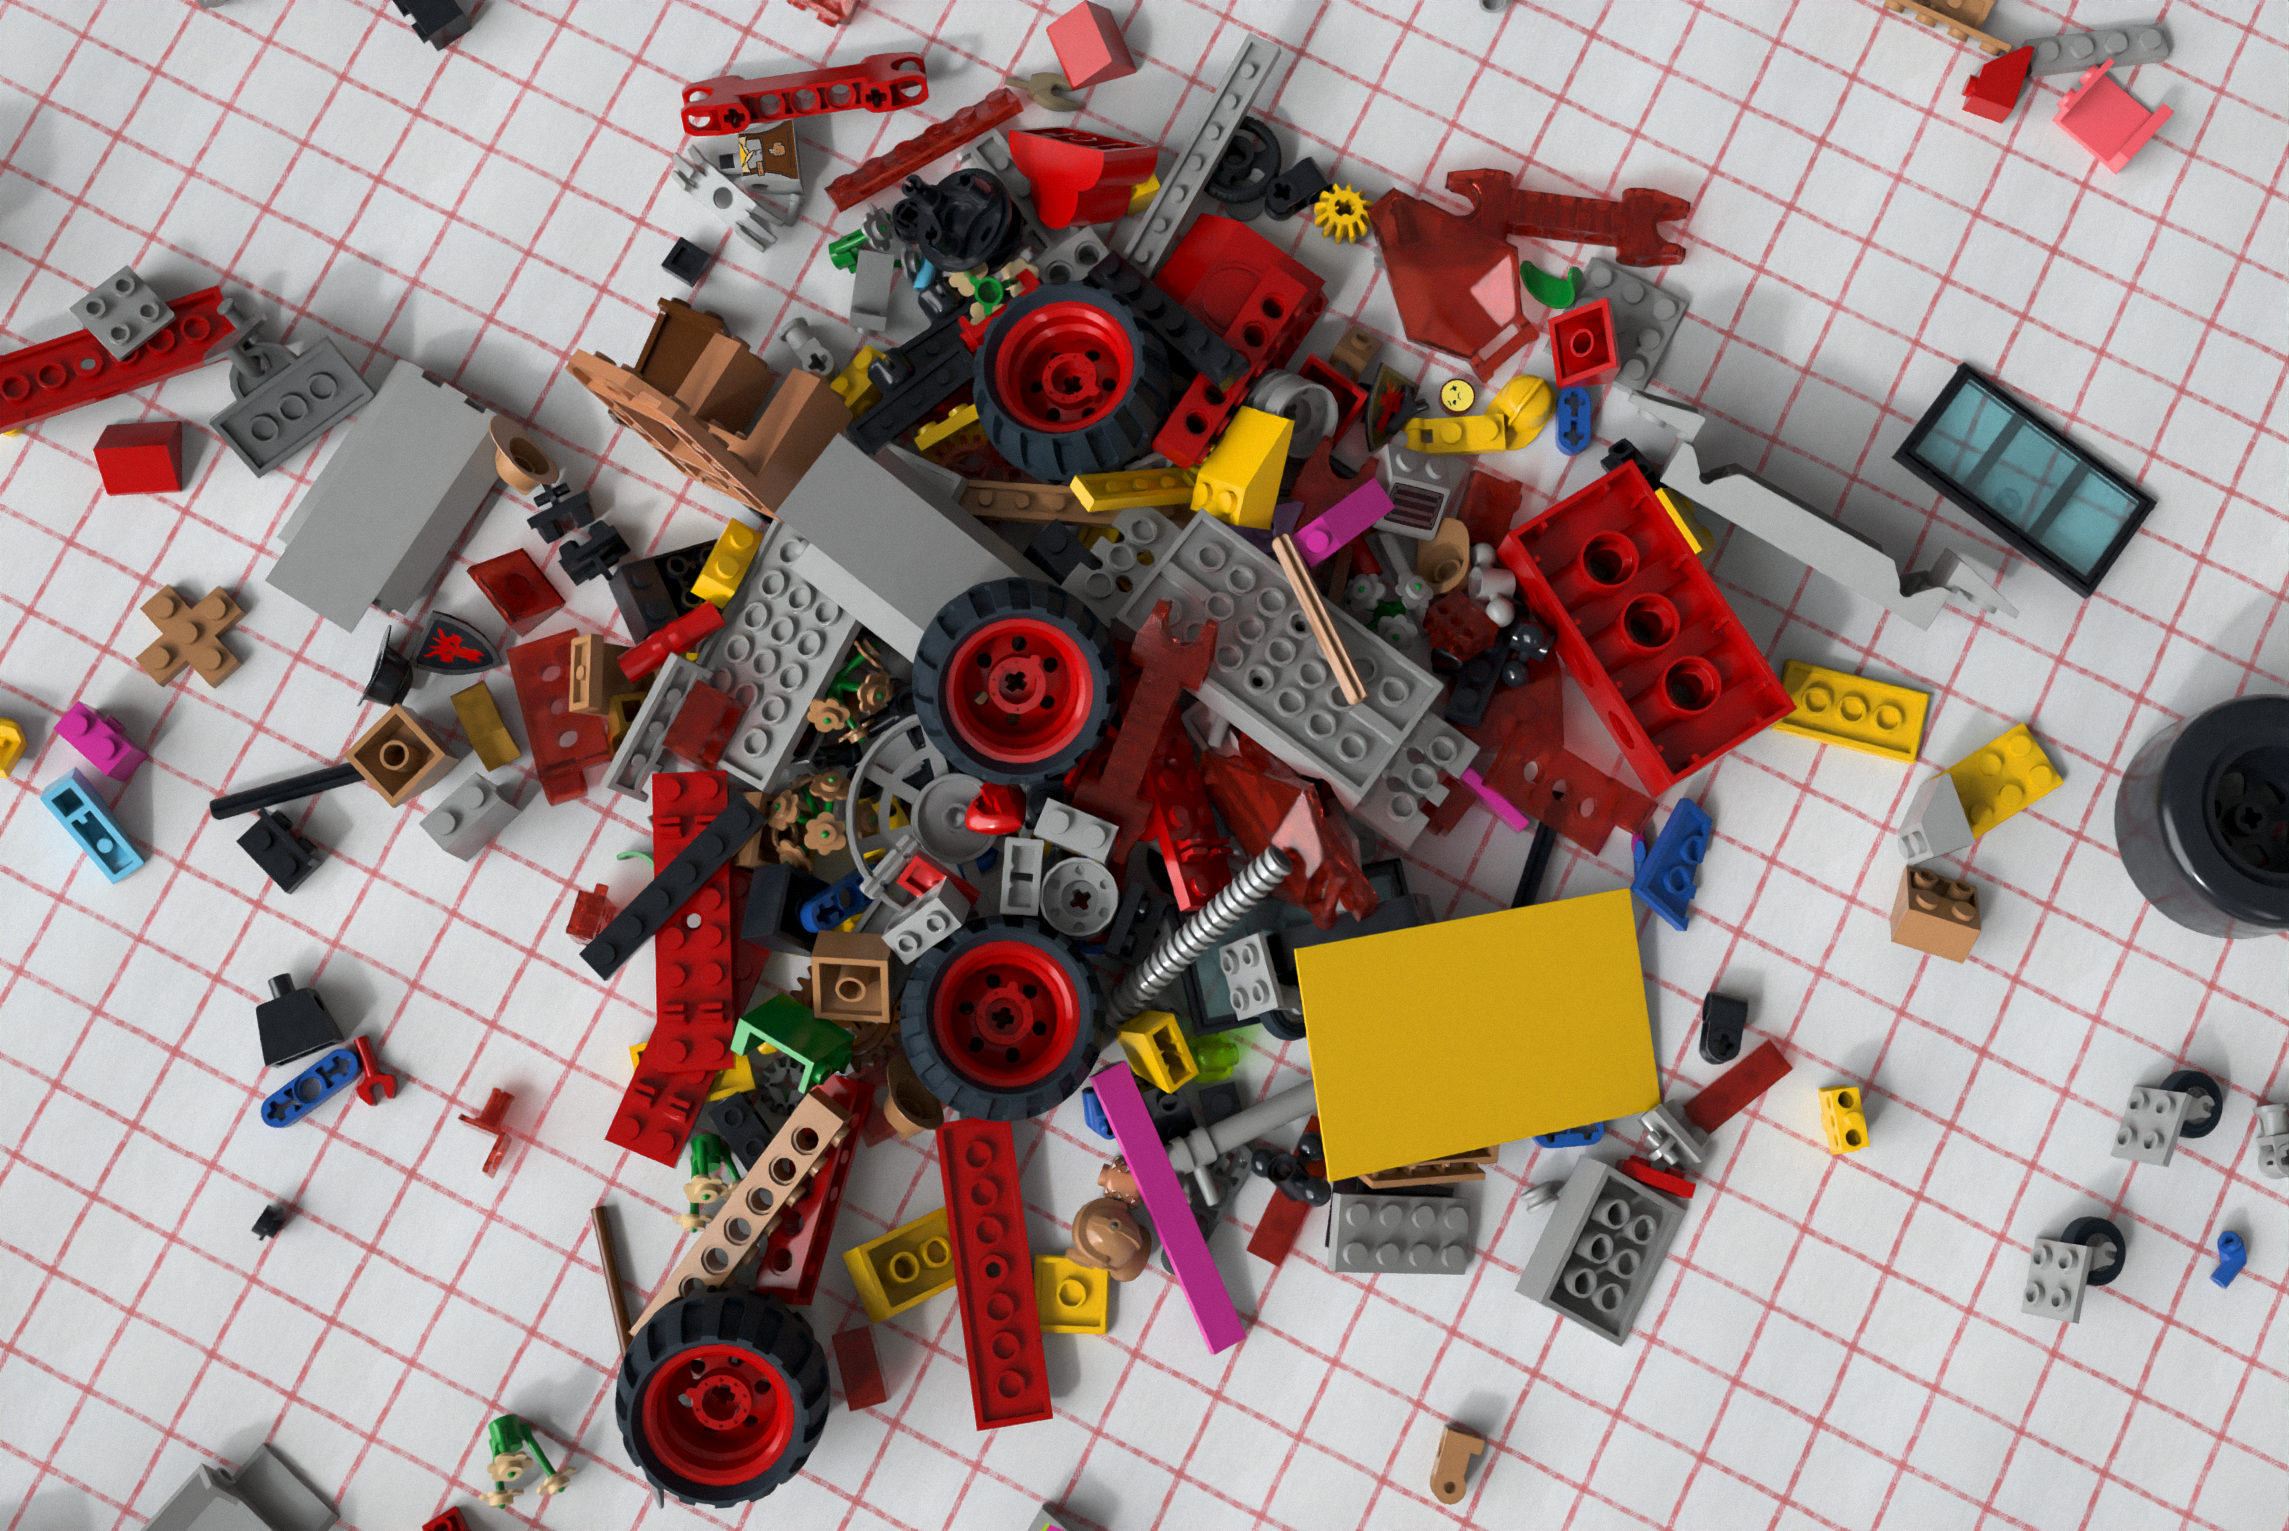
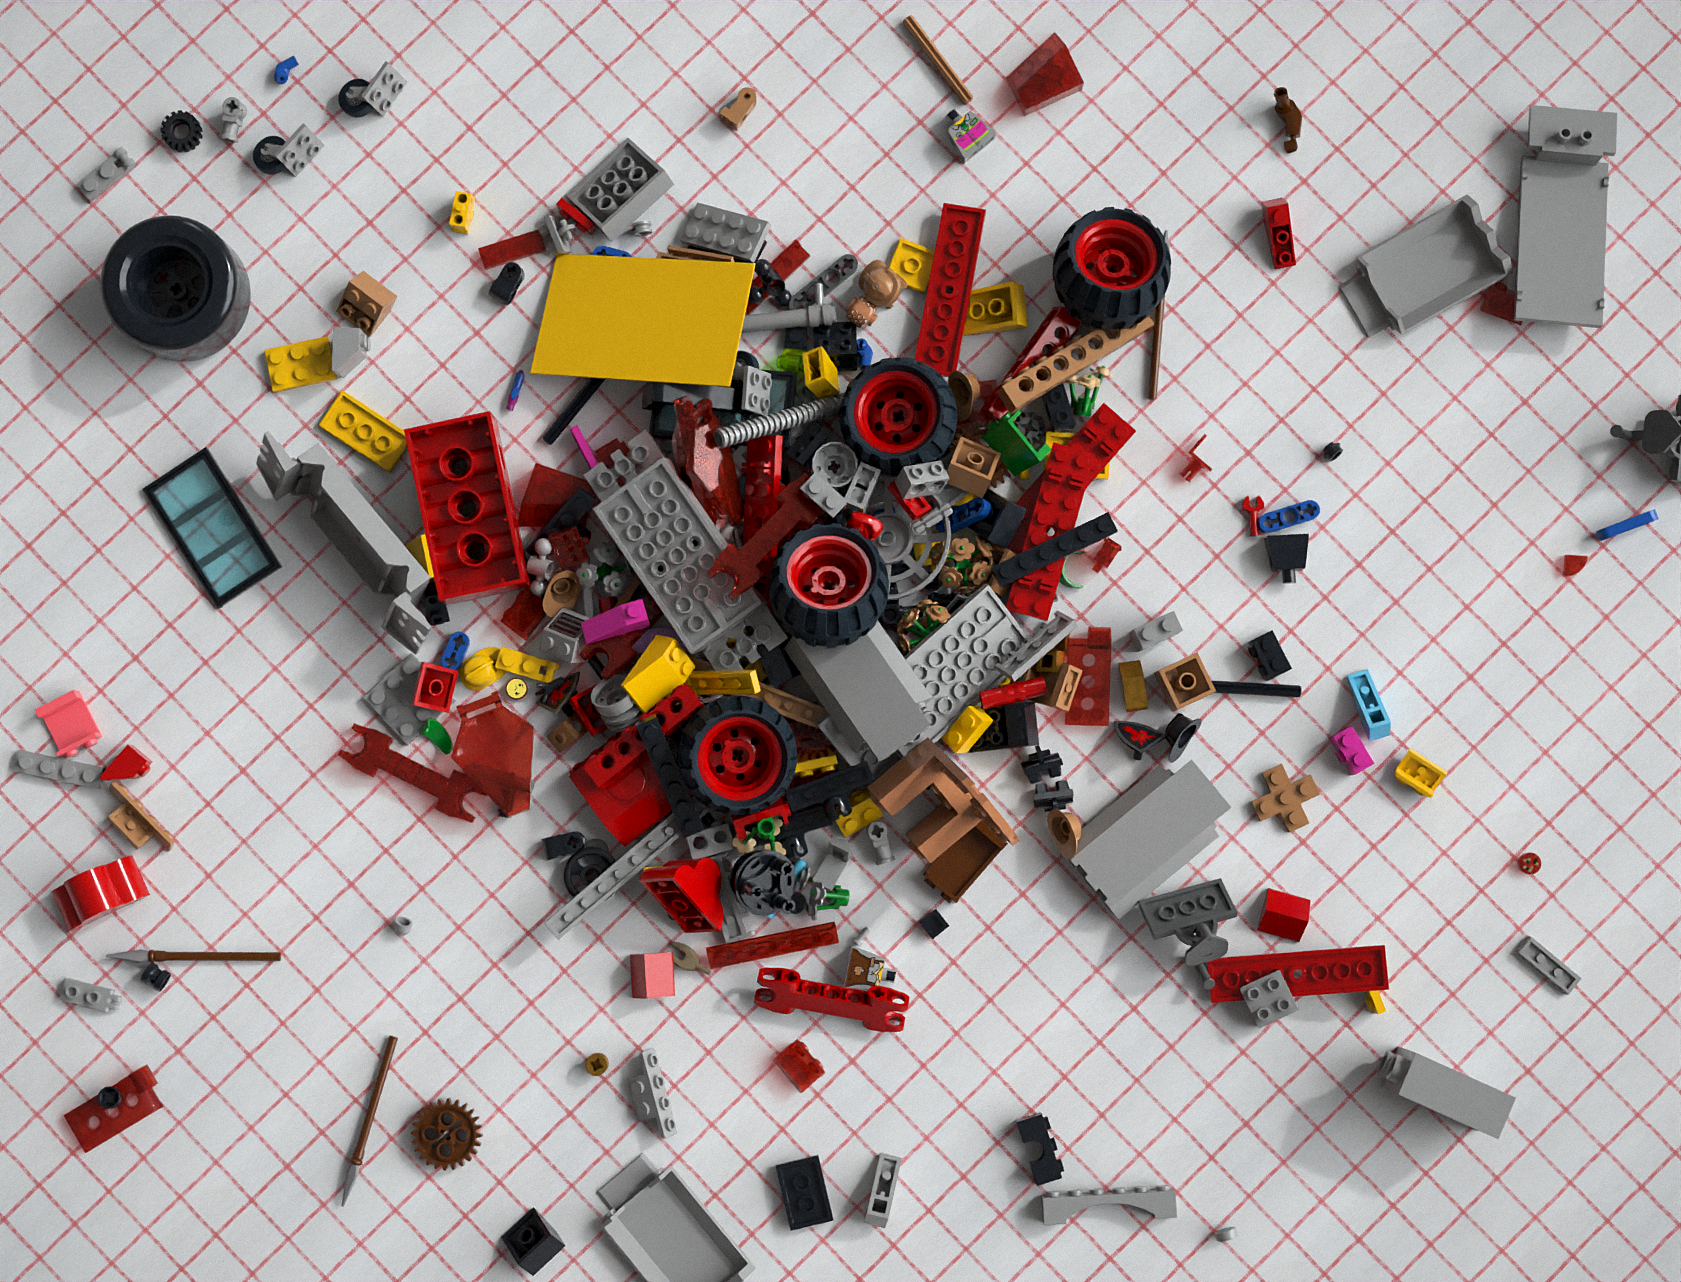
camera: 155 degrees left, 5 degrees up
(507, 1439) = (1235, 294): plant -> none
(517, 590) = (1091, 758): clear red slope -> none
(705, 725) = (1009, 635): clear red brick -> none
(742, 207) = (896, 942): light grey piece -> none
(861, 1367) = (1036, 264): clear red brick -> none
(1167, 1207) = (844, 290): dark pink tile -> none
(1320, 619) = (648, 566): medium nougat axle -> none
(1342, 202) = (543, 812): yellow gear -> none
(1530, 641) = (532, 523): black piece -> none
(1612, 799) = (519, 425): clear red hinge -> none
(1670, 868) = (502, 377): blue wing -> none

